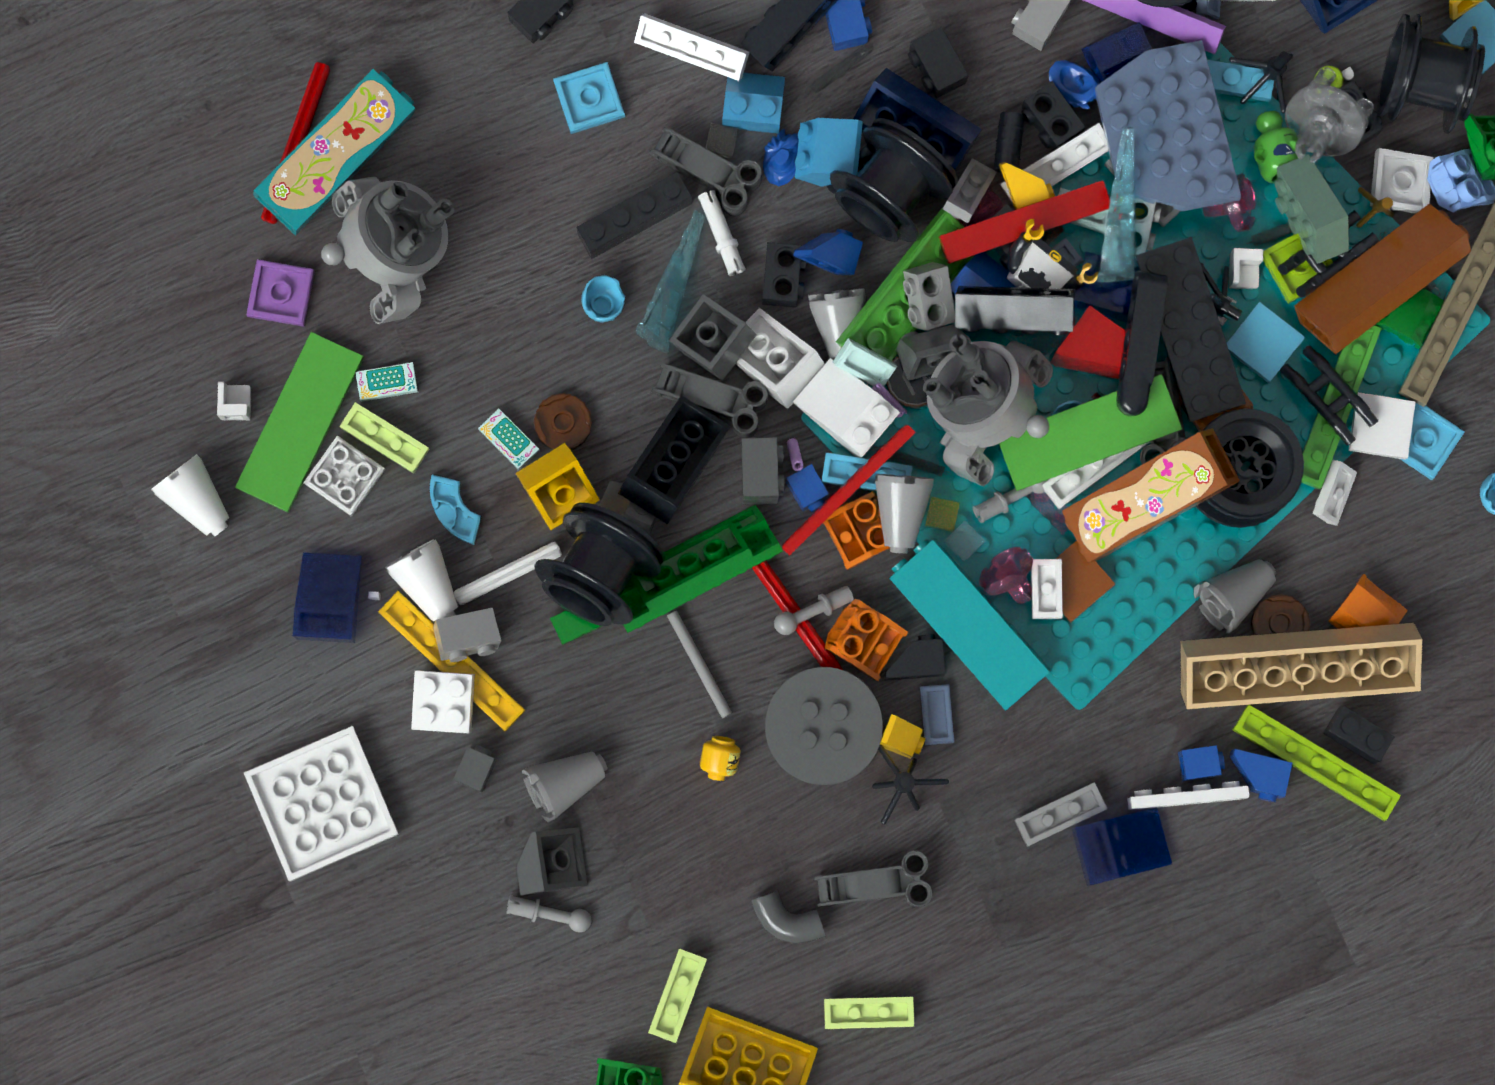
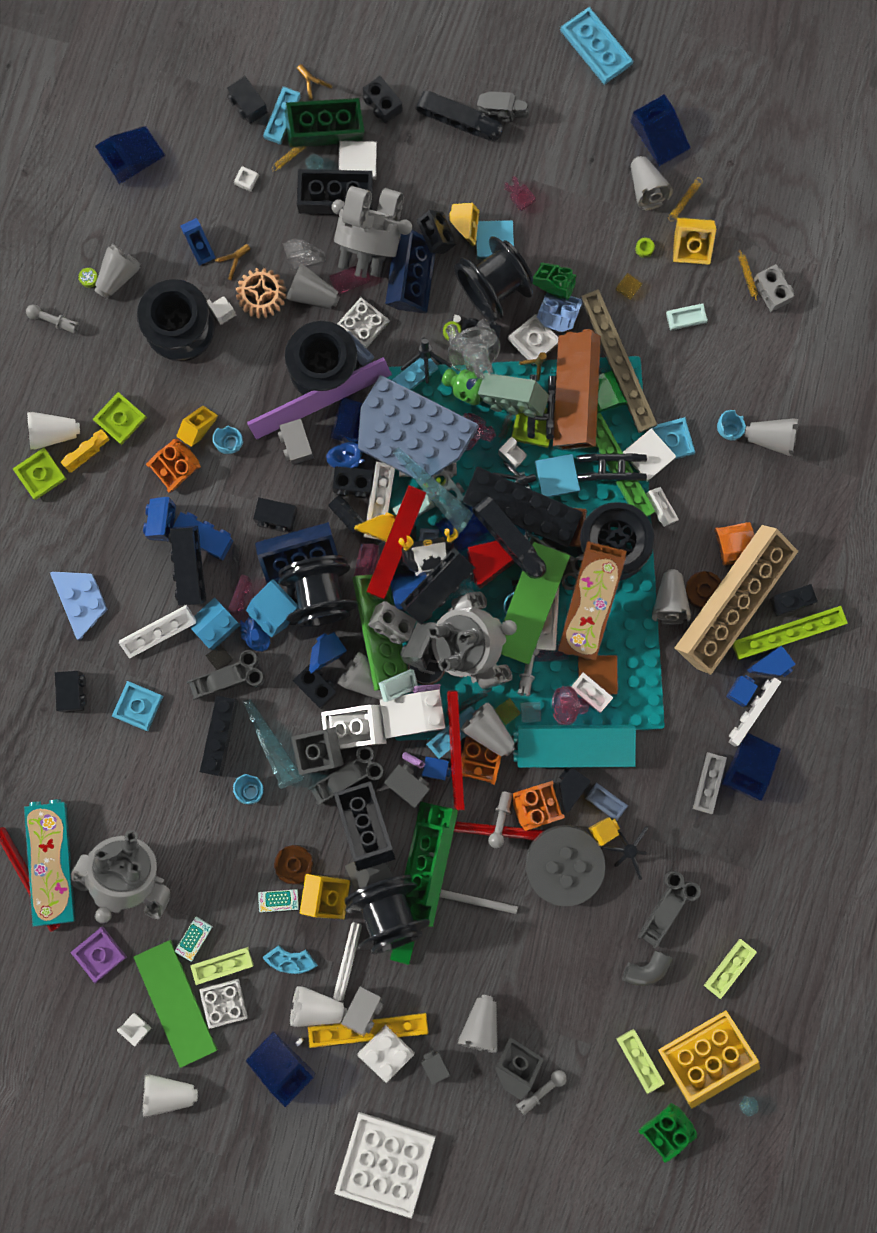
camera: 45 degrees left, 0 degrees up
(720, 757) = (536, 933): yellow head -> none
(725, 243) = (266, 698): white pin -> none
(802, 106) = (237, 603): none -> clear pink plate
(969, 190) = (355, 555): light grey plate -> none

